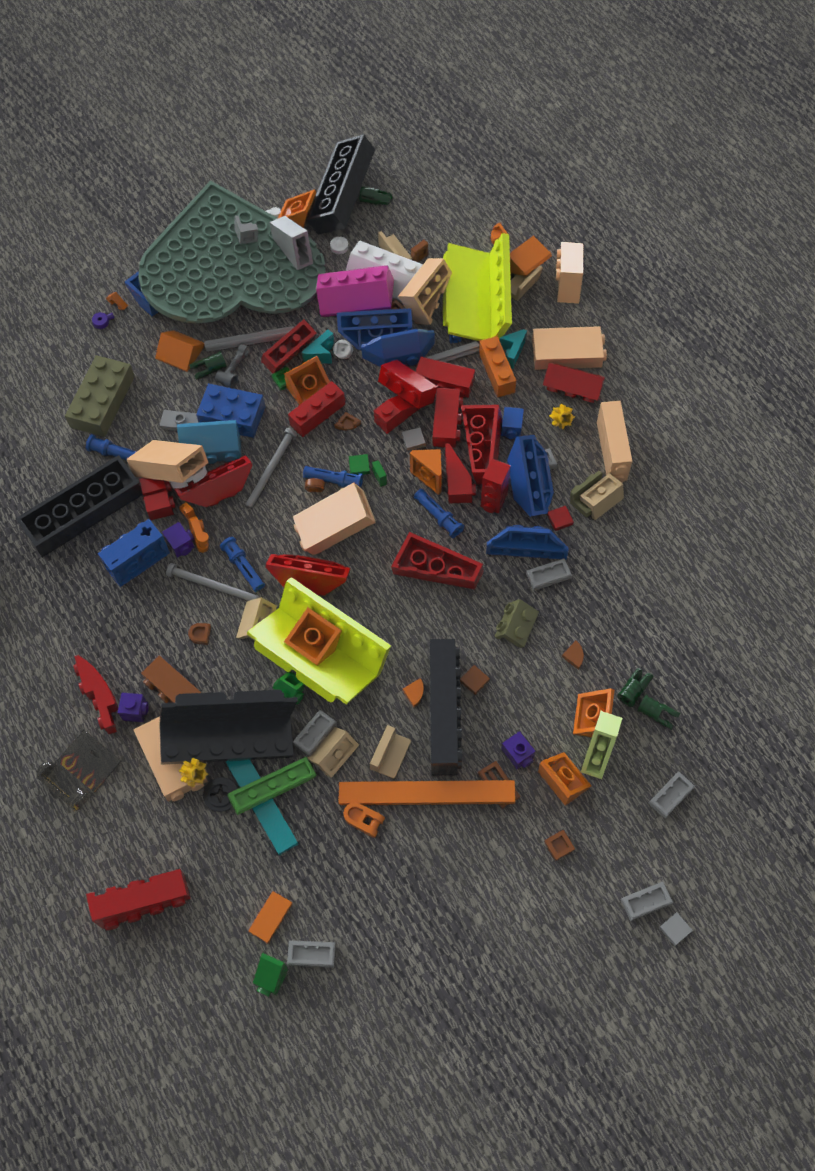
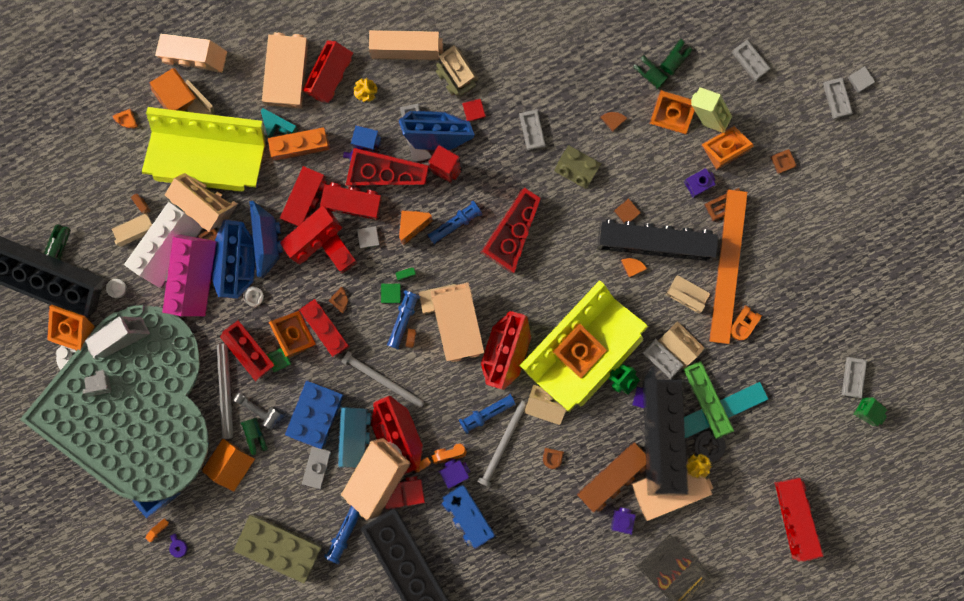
camera: 85 degrees left, 20 degrees up
(97, 689) = (595, 556): red slope -> none
(270, 917) = (819, 409): orange tile -> none
(320, 348) = (254, 323): teal slope -> none
(457, 352) = (273, 184): light grey axle -> none
(458, 479) = (424, 200): red slope -> none
(527, 542) = (498, 143): blue wedge -> none

